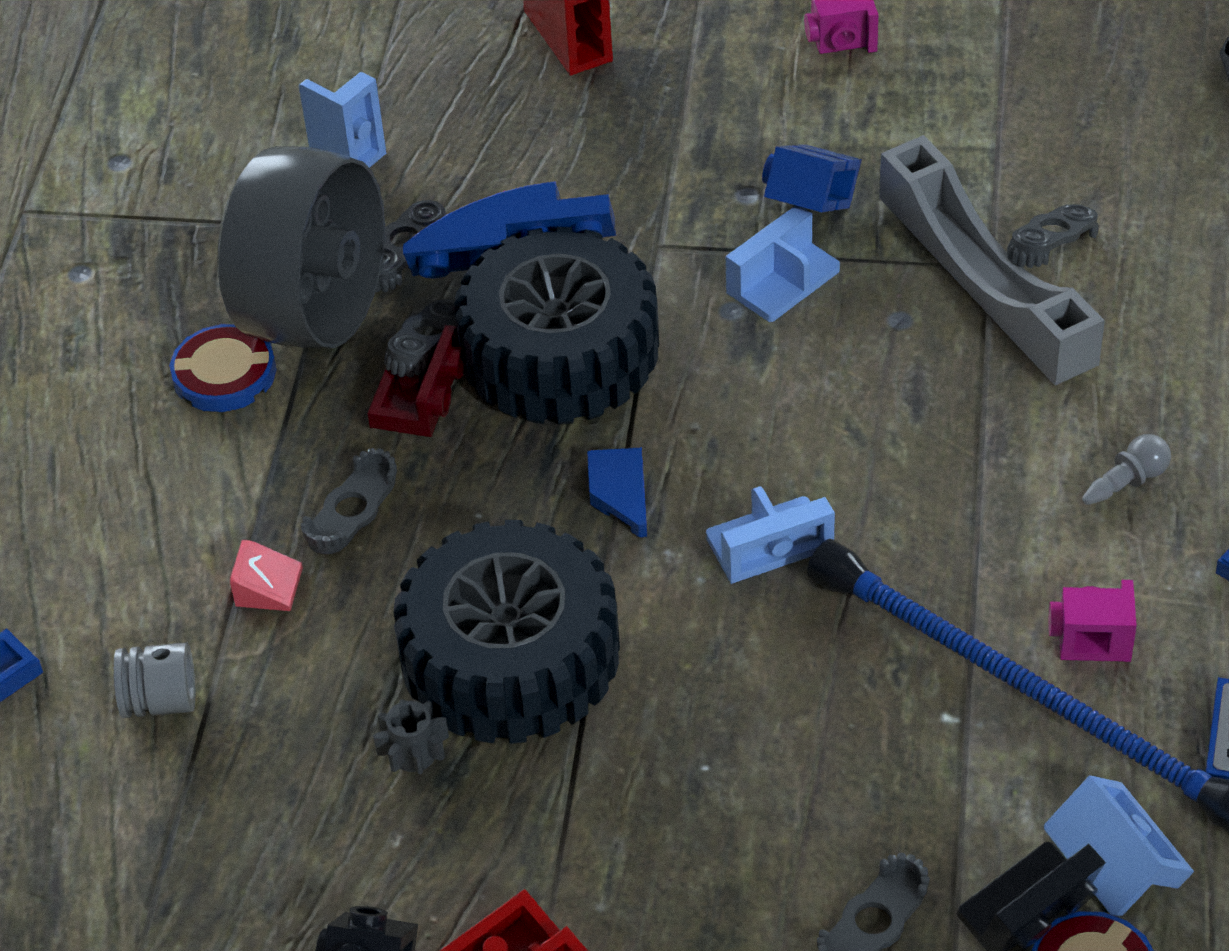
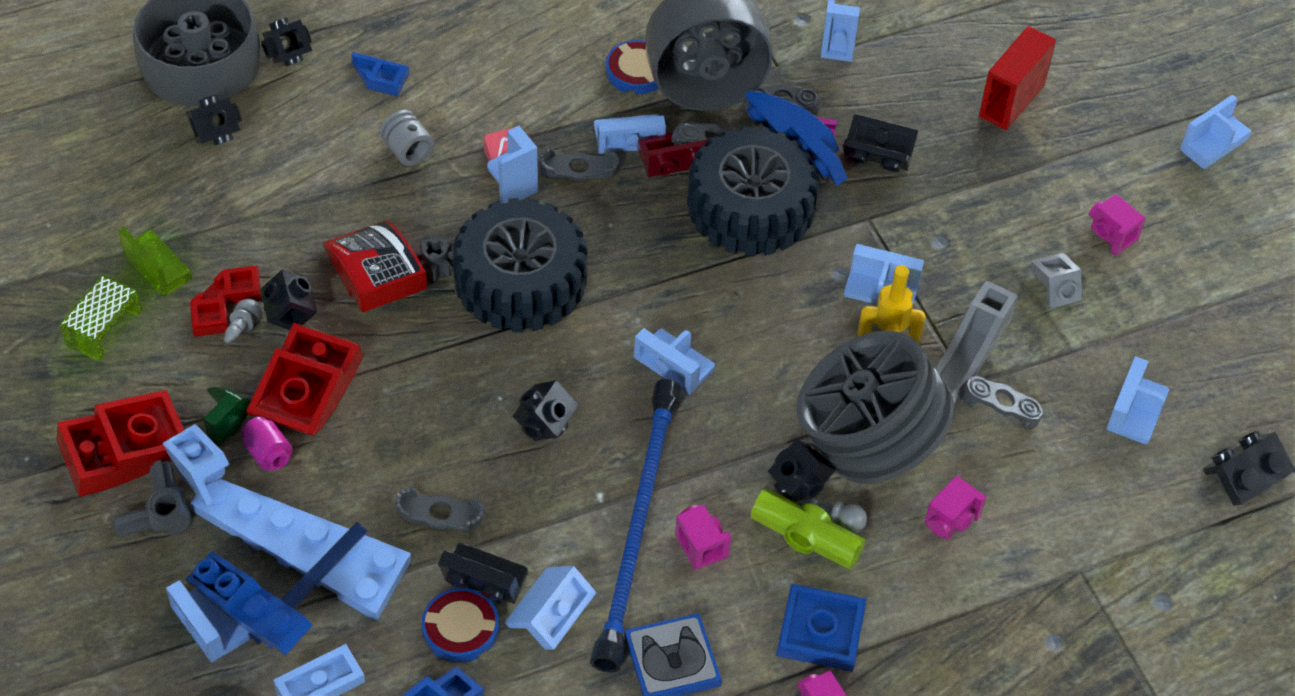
camera: 55 degrees right, 5 degrees up
(324, 555) = (517, 168): none -> light blue panel
(334, 423) = (624, 132): none -> light blue panel
(365, 816) = (376, 265): none -> slope
(569, 161) = (880, 143): none -> black bracket
(618, 485) = (666, 276): blue tile -> none
(787, 708) = (545, 411): none -> black brick
(811, 177) = (951, 258): blue piece -> none
(871, 264) = (894, 309): none -> yellow plant
(888, 102) = (1060, 278): none -> light grey bracket
(1065, 395) = (875, 407): none -> dark grey wheel
(1070, 452) = (800, 471): none -> black brick
(1117, 121) = (1137, 405): none -> light blue panel
(1141, 506) = (807, 528): none -> lime piece
(1190, 348) = (954, 508): none -> dark pink brick

